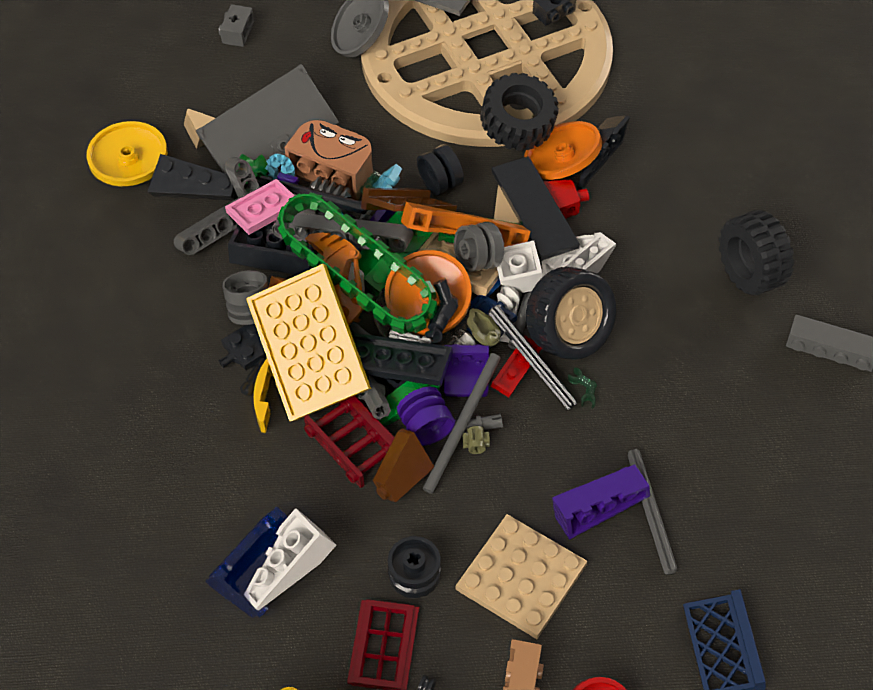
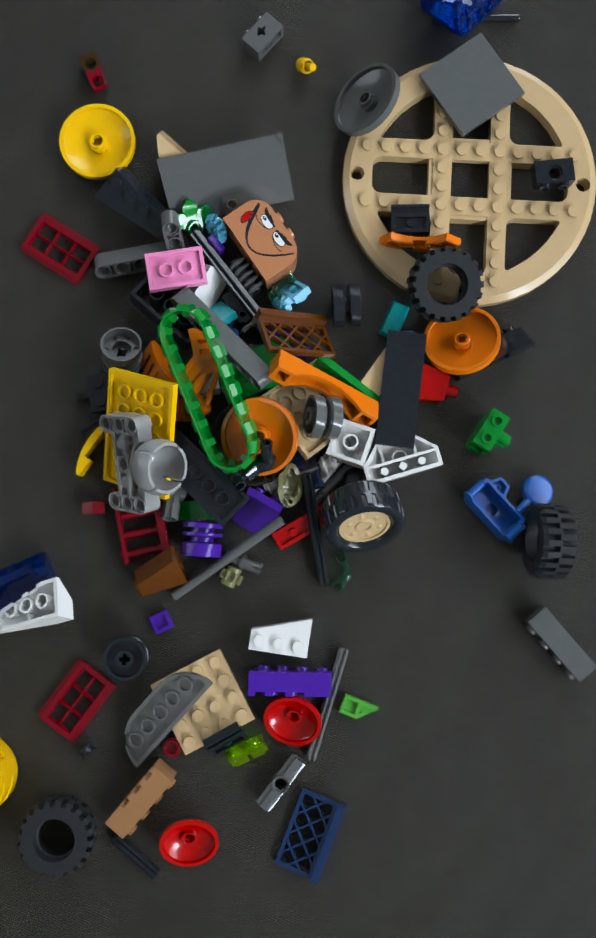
camera: 25 degrees right, 30 degrees up
(94, 108) = (94, 72): none -> leg
(134, 268) = (69, 234): none -> dark red piece
(288, 29) = (305, 65): none -> yellow cylinder
(295, 449) = (93, 507): none -> dark red piece
(333, 349) = (141, 463): none -> light grey beam
(429, 522) = (161, 621): none -> dark purple tile
(454, 85) = (410, 218): none -> black plate
(471, 99) = (419, 243): none -> orange tile
(485, 598) = (162, 712): none -> dark grey plate
(486, 163) = (394, 318): none -> teal tile
(517, 632) = (171, 747): none -> dark red plate
(565, 468) = (282, 638): none -> white wedge
(570, 592) = (225, 739): none -> black plate
(605, 589) = (239, 753): none -> clear neon green hinge
(637, 202) = (489, 432): none -> green piece
(642, 543) = (292, 720): none -> red dish
(656, 619) = (273, 792): none -> dark grey piece
(682, 500) = (355, 707): none -> bright green tile
(689, 261) = (498, 512): none -> blue piece

